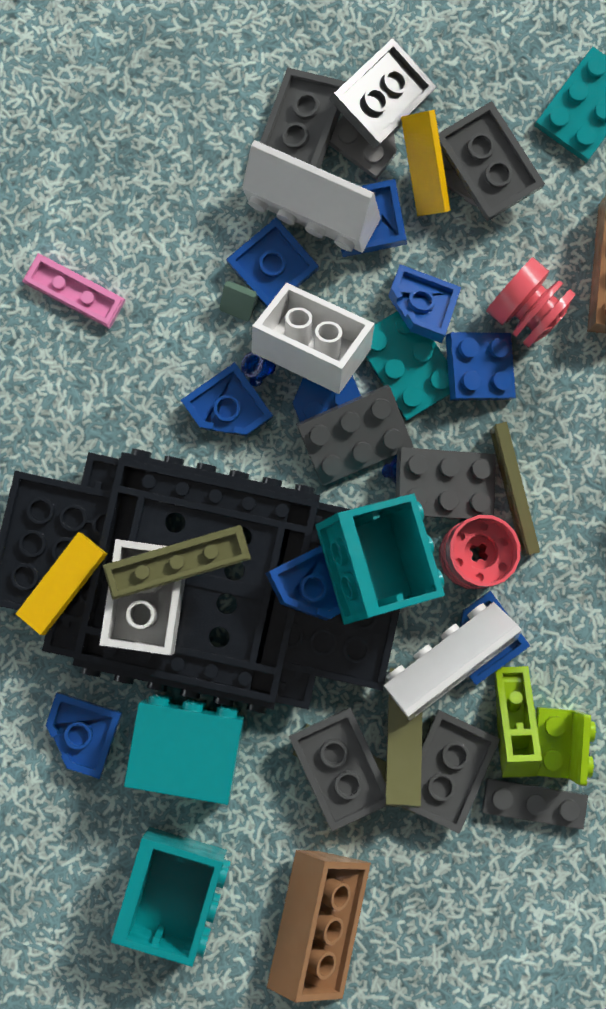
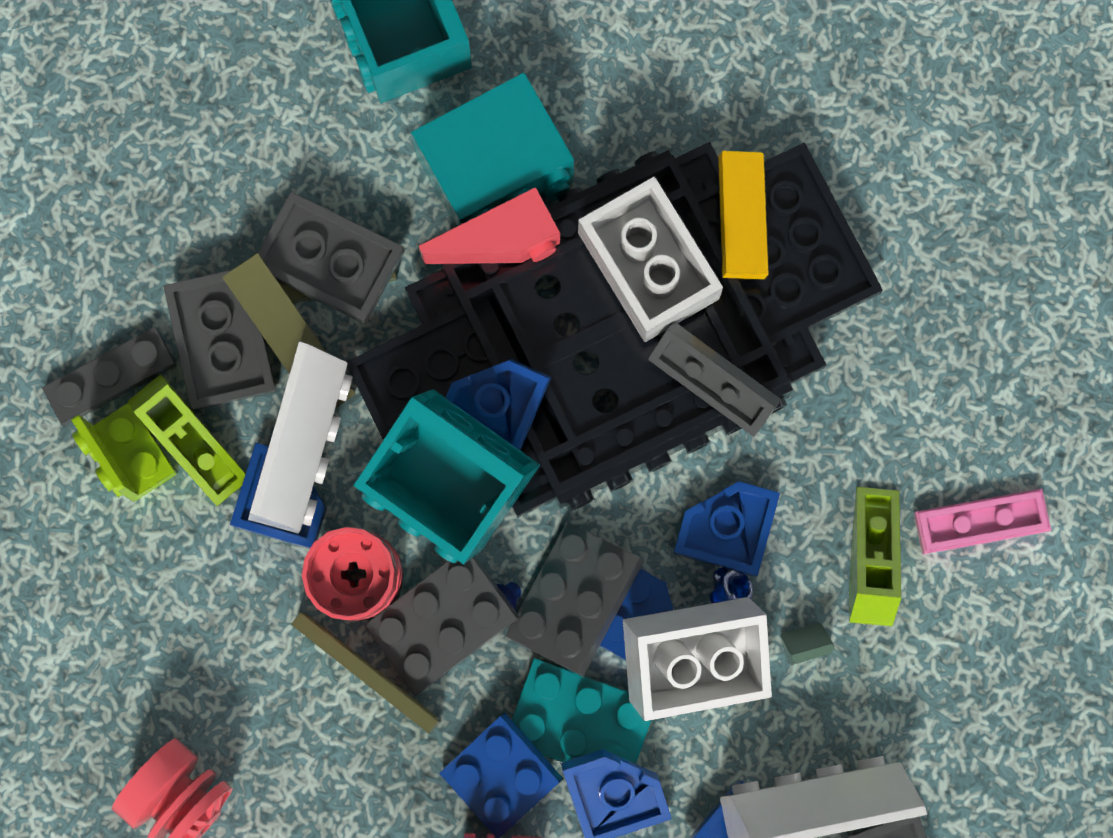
camera: 145 degrees right, 5 degrees down
(82, 733) = (607, 101): blue plate -> none
(155, 318) = (875, 557): none -> lime slope
(166, 491) = (714, 379): none -> dark grey plate
(176, 562) = (643, 310): olive tile -> none
(221, 688) = (501, 235): none -> coral slope
(272, 261) = (805, 713): blue plate -> none
(318, 926) = (235, 99): medium nougat slope -> none

